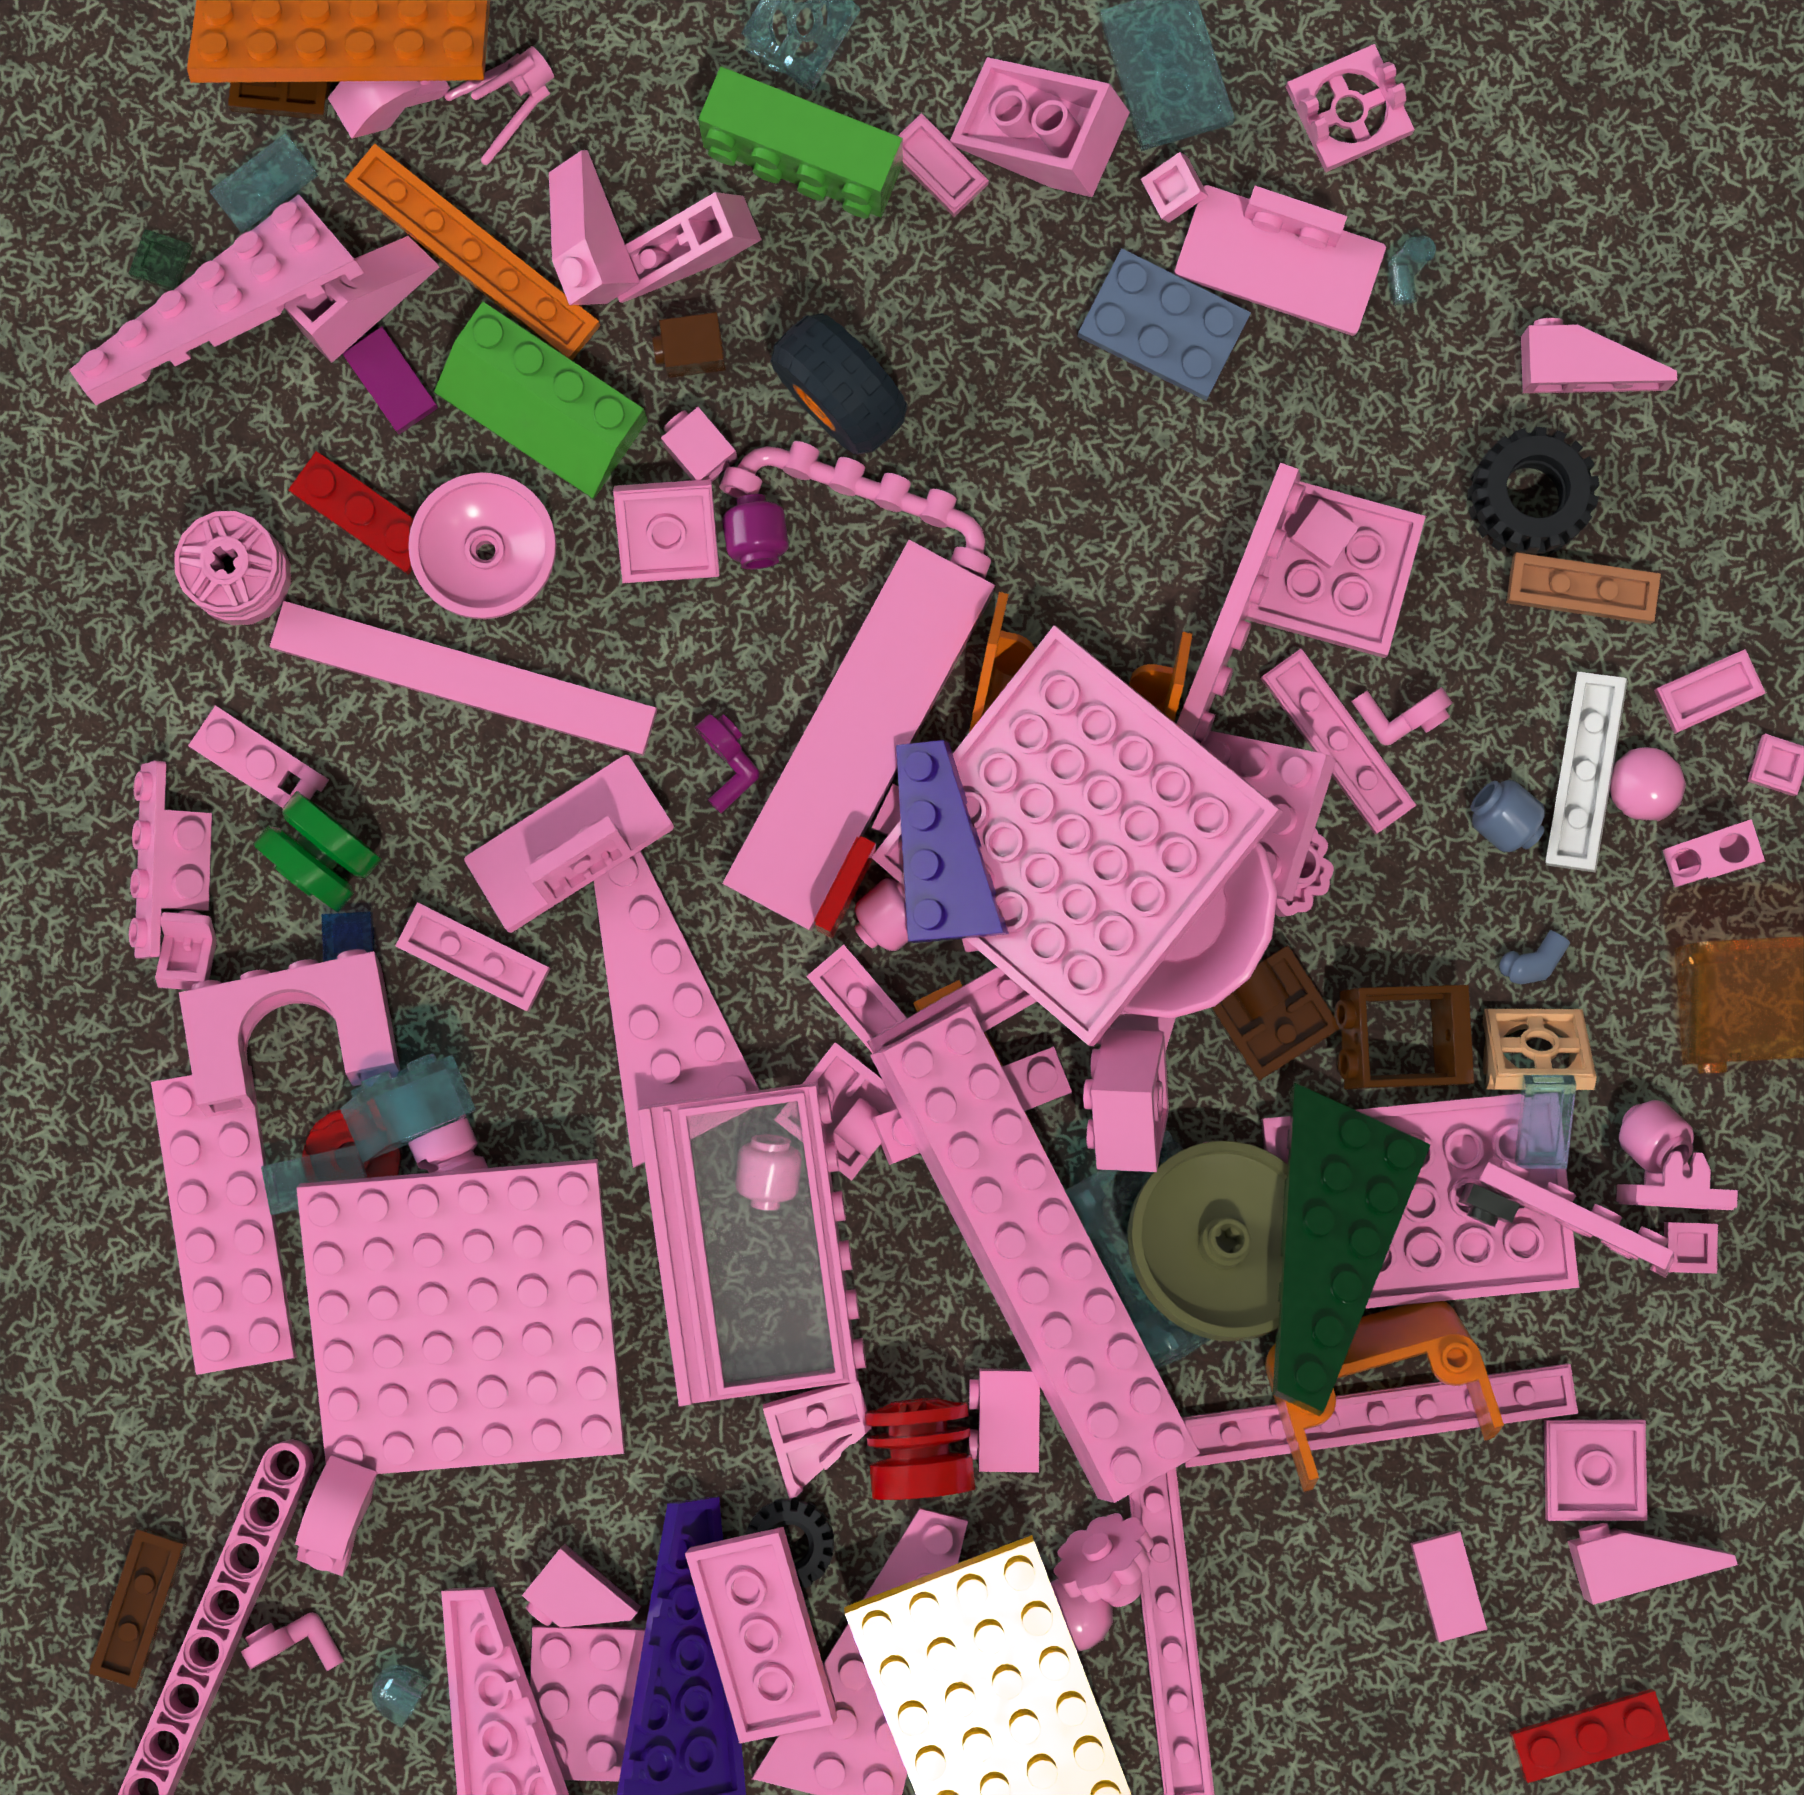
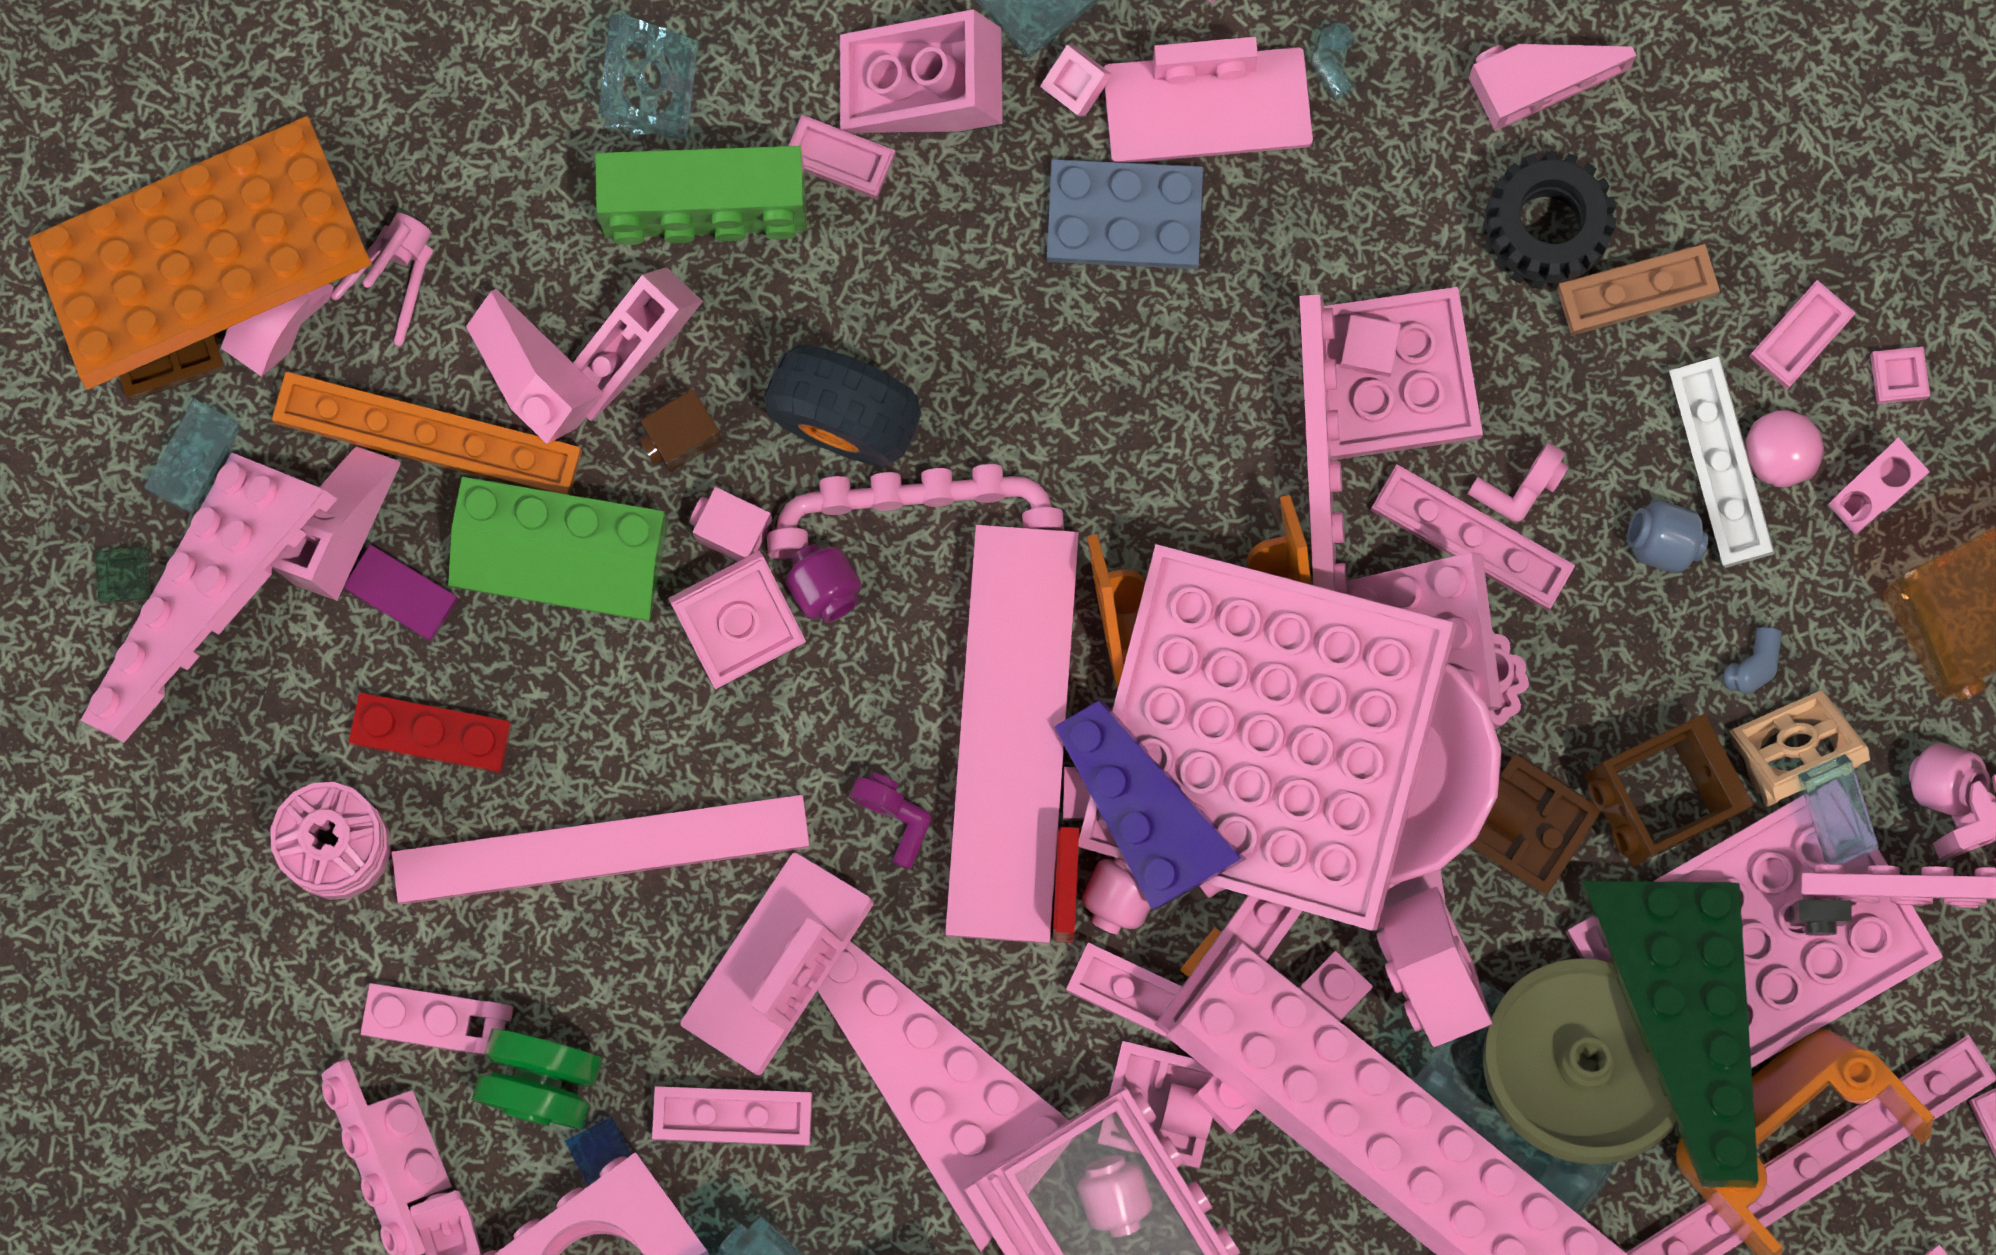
camera: 25 degrees left, 5 degrees down
(463, 518) = (559, 676): bright pink dish -> none

